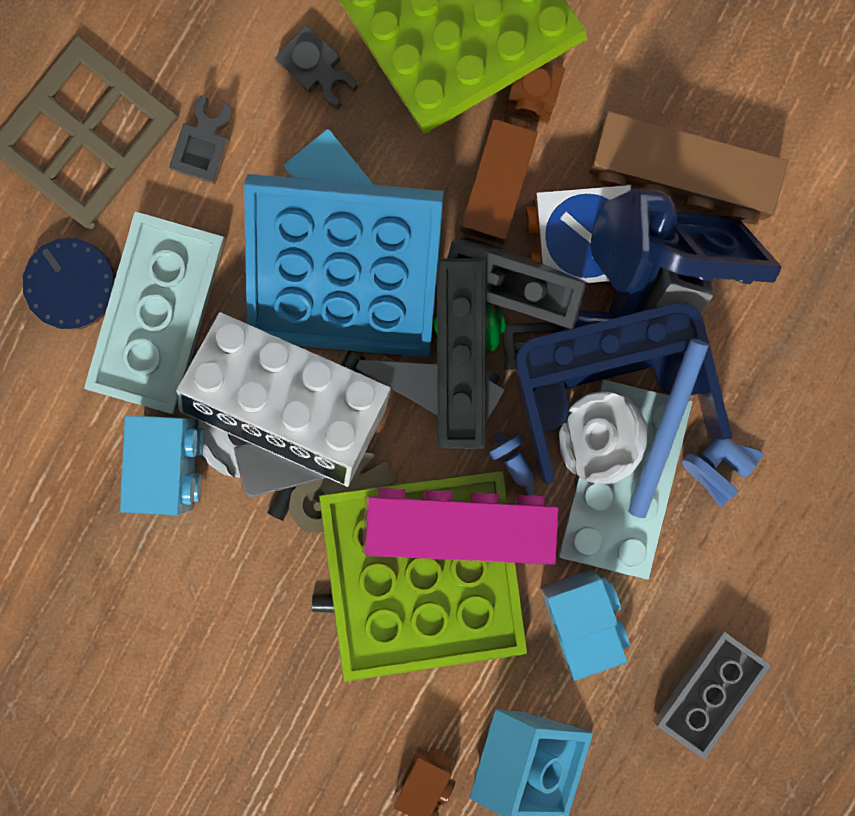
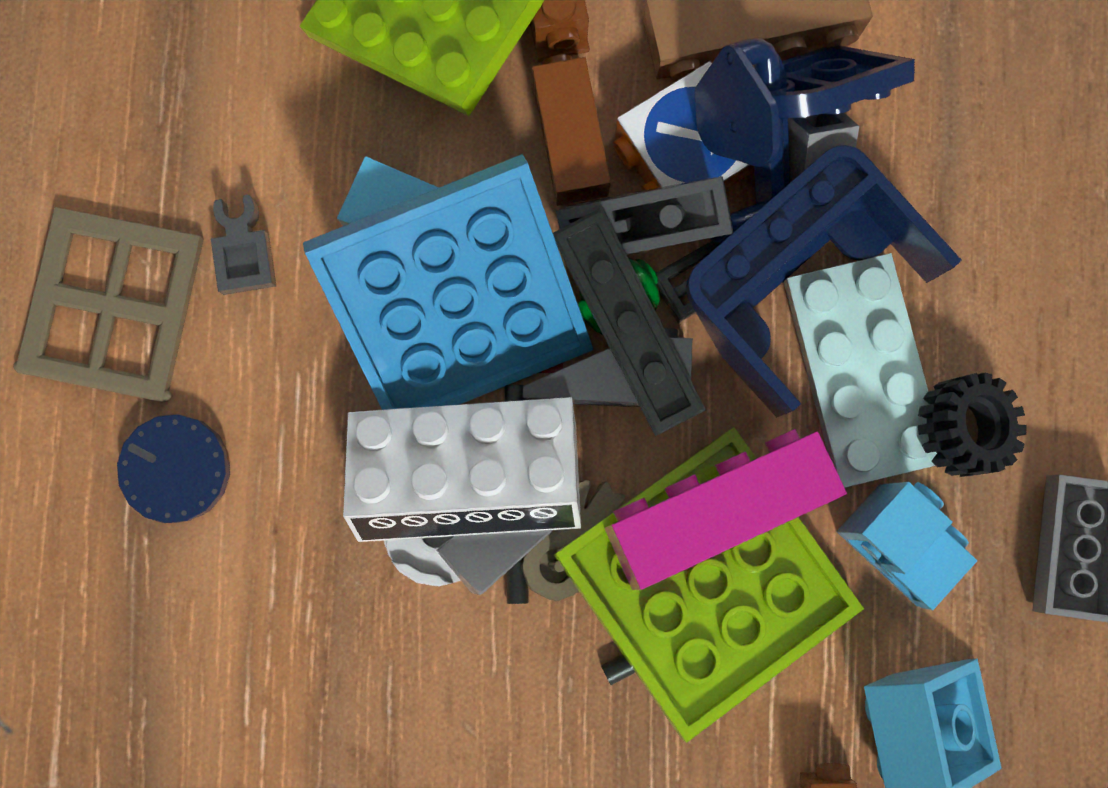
camera: 30 degrees left, 5 degrees down
(154, 312) = (279, 452): light aqua plate -> none
(160, 465) = (366, 609): medium azure brick -> none
(312, 63) = (315, 111): dark grey plate -> none
(516, 464) = (754, 417): medium blue piece -> none
(603, 437) = (822, 336): white tile -> none
(668, 427) = (887, 287): medium blue bar -> none
(700, 568) = (995, 422): none -> black tyre
(738, 457) = (944, 320): medium blue piece -> none

